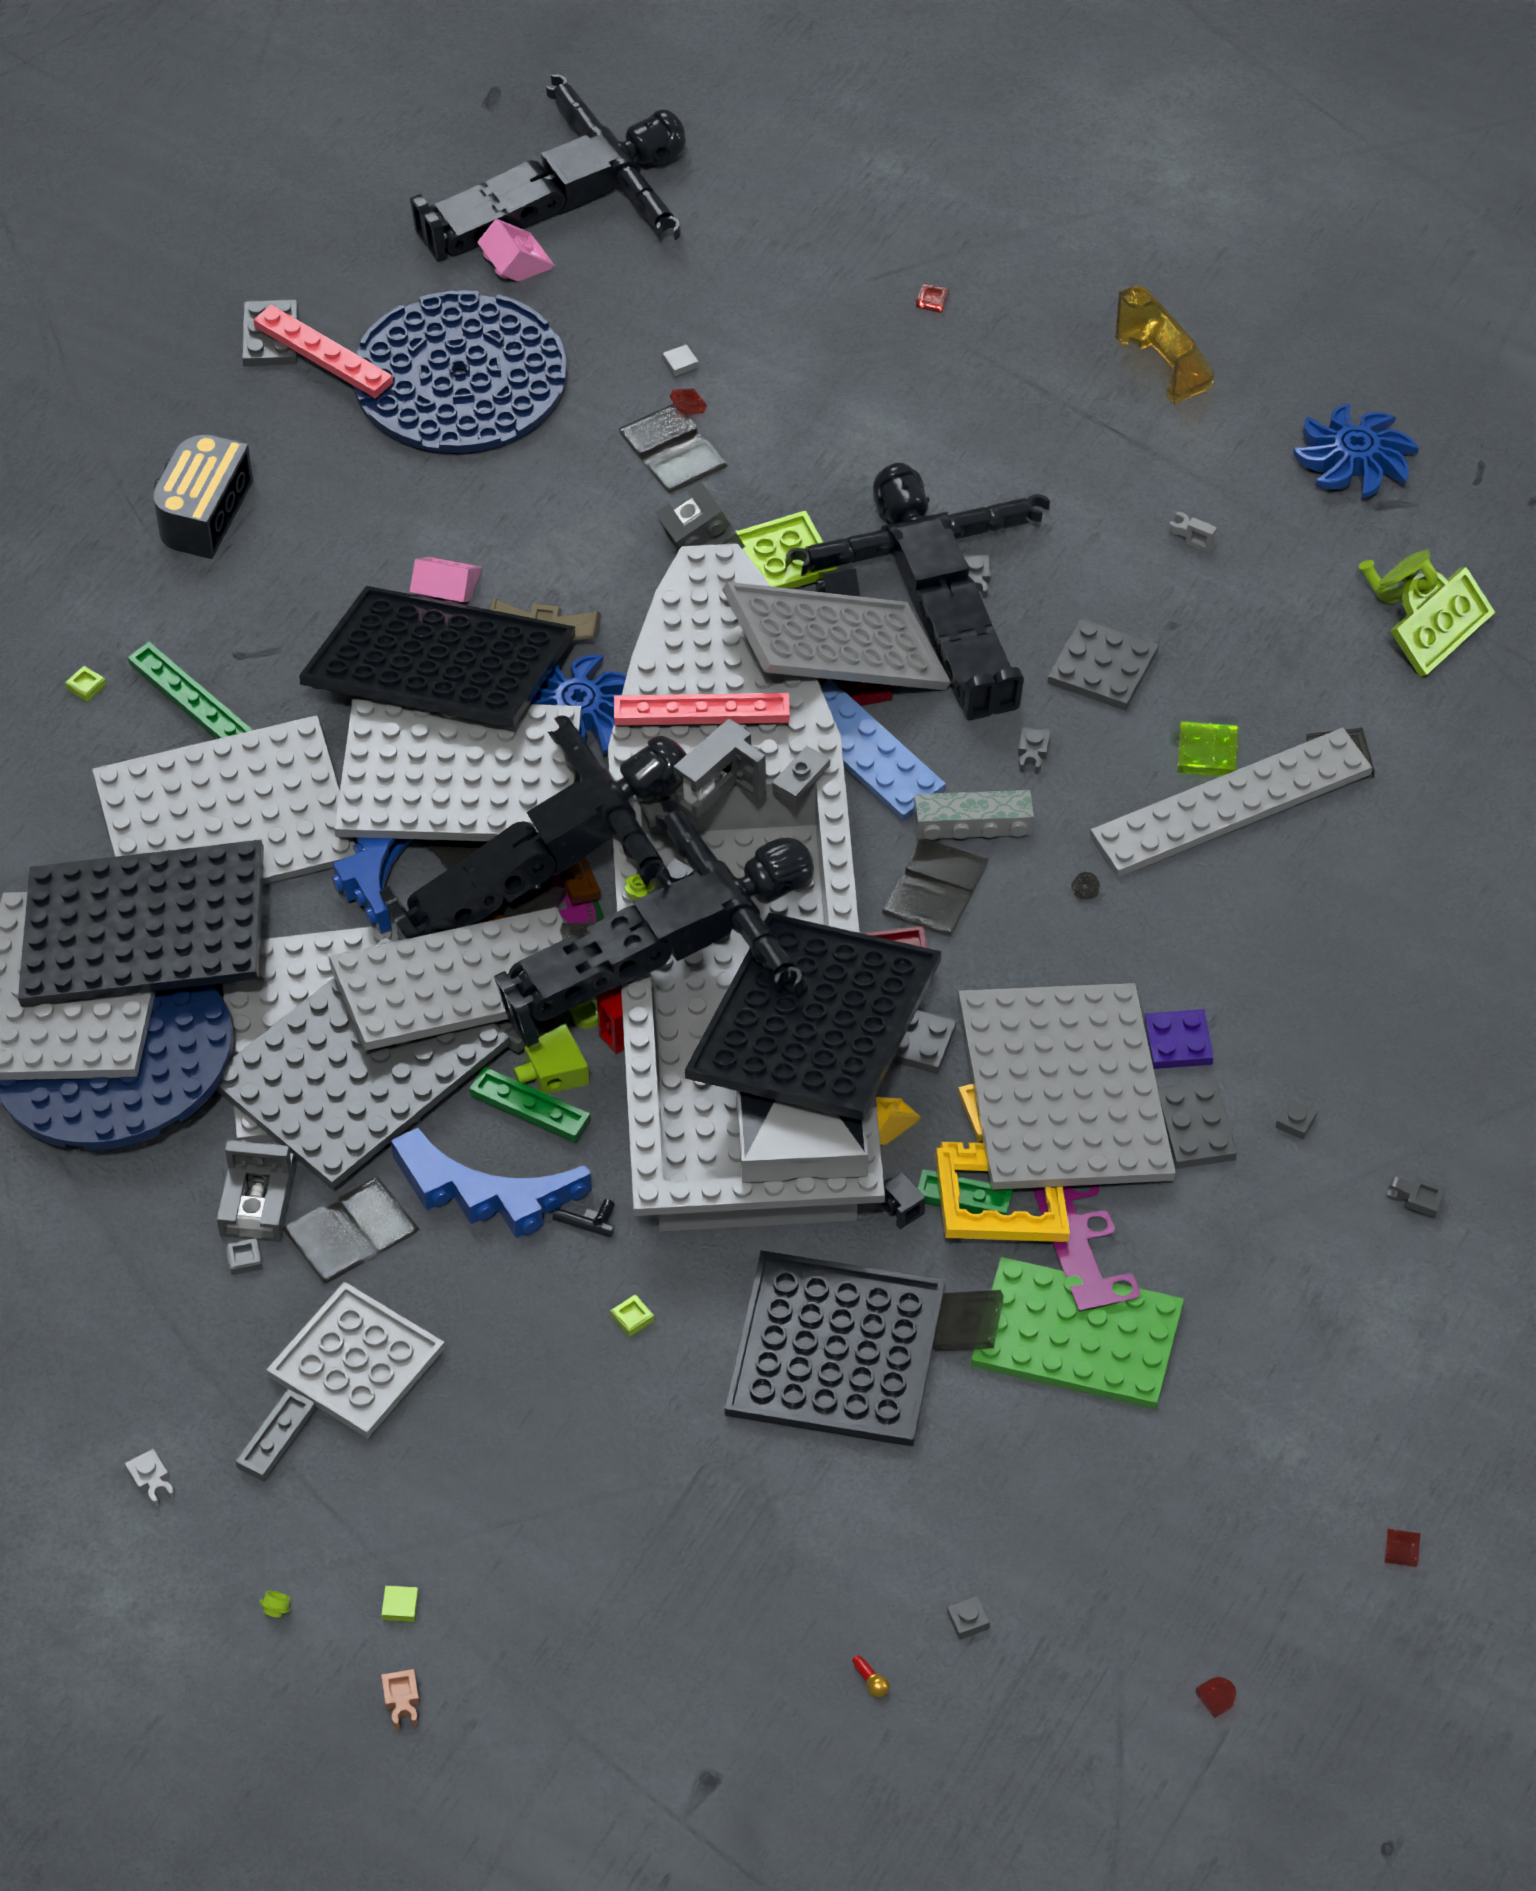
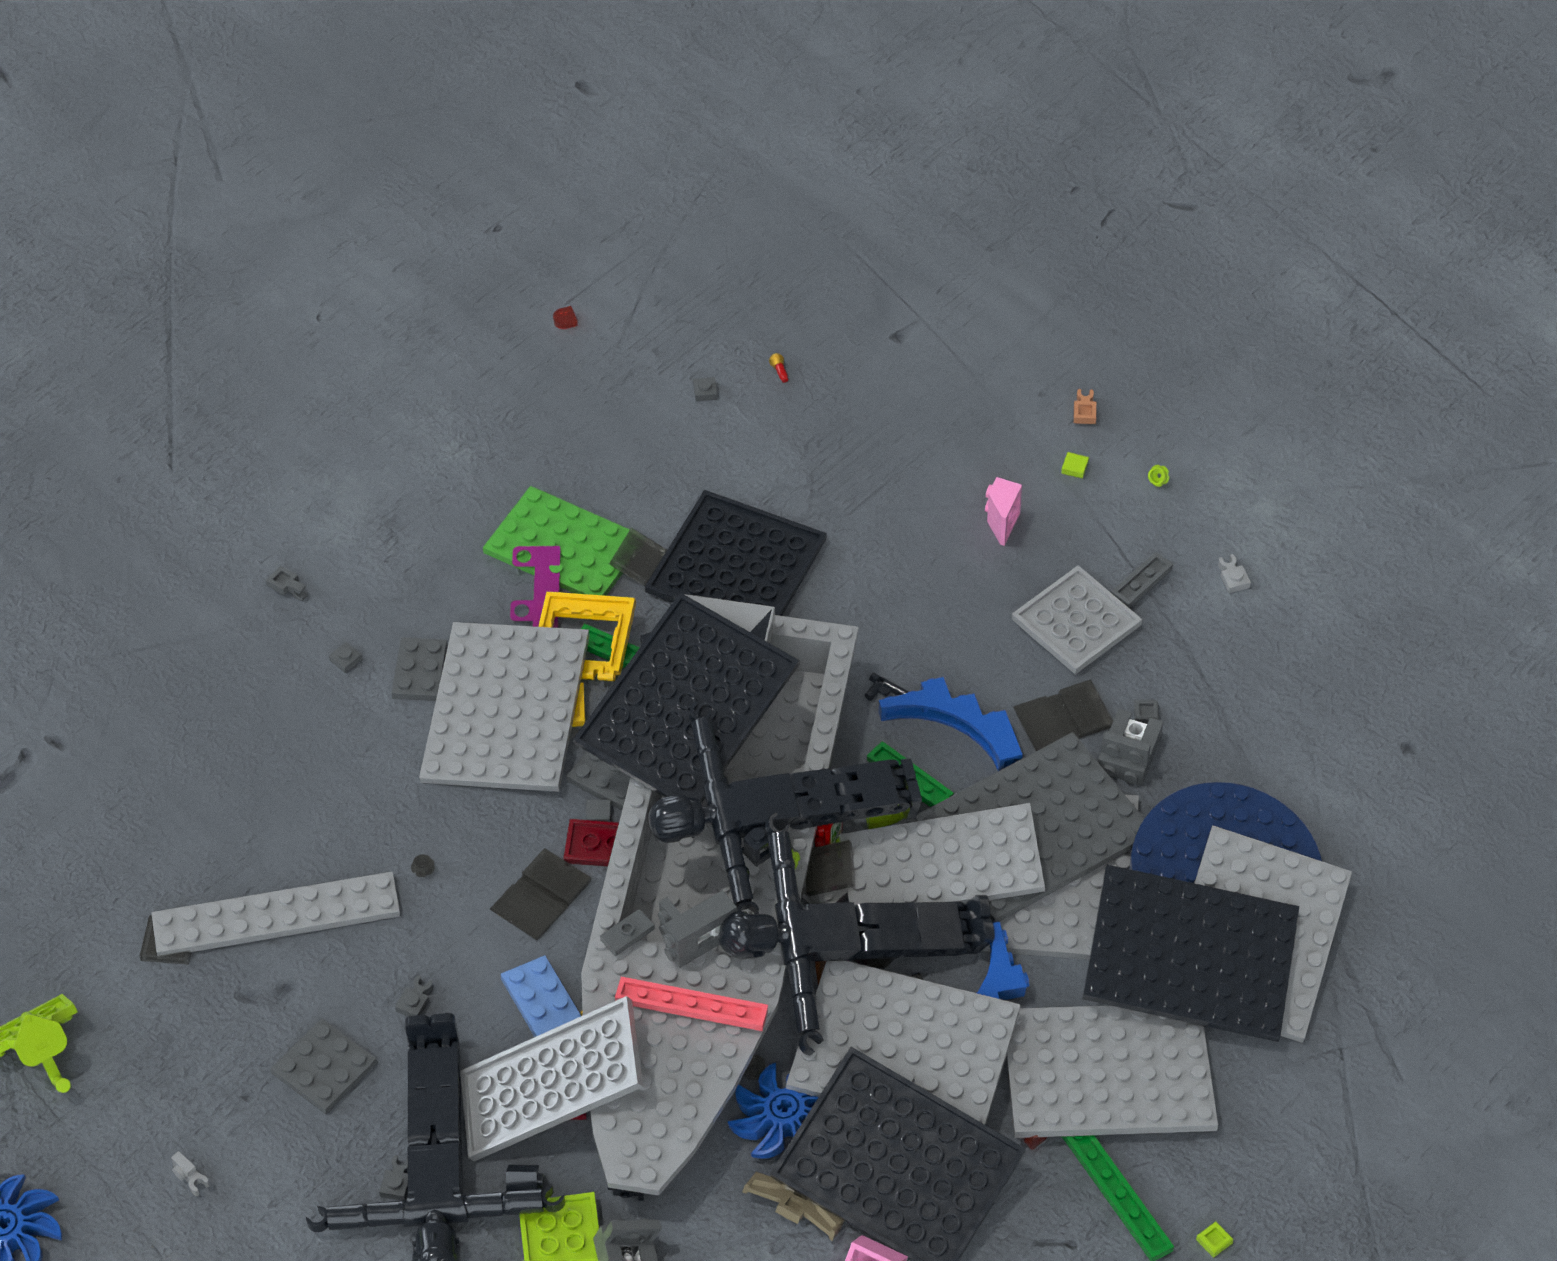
camera: 165 degrees left, 0 degrees up
(486, 1483) = (1003, 507): none -> bright pink slope
(632, 1315) = (872, 616): lime tile -> none
(973, 814) = (489, 937): light grey brick -> none
(1178, 1039) = (404, 733): dark purple plate -> none
(1207, 748) = (272, 967): clear neon green plate -> none
(1402, 1547) = (409, 376): clear red tile -> none

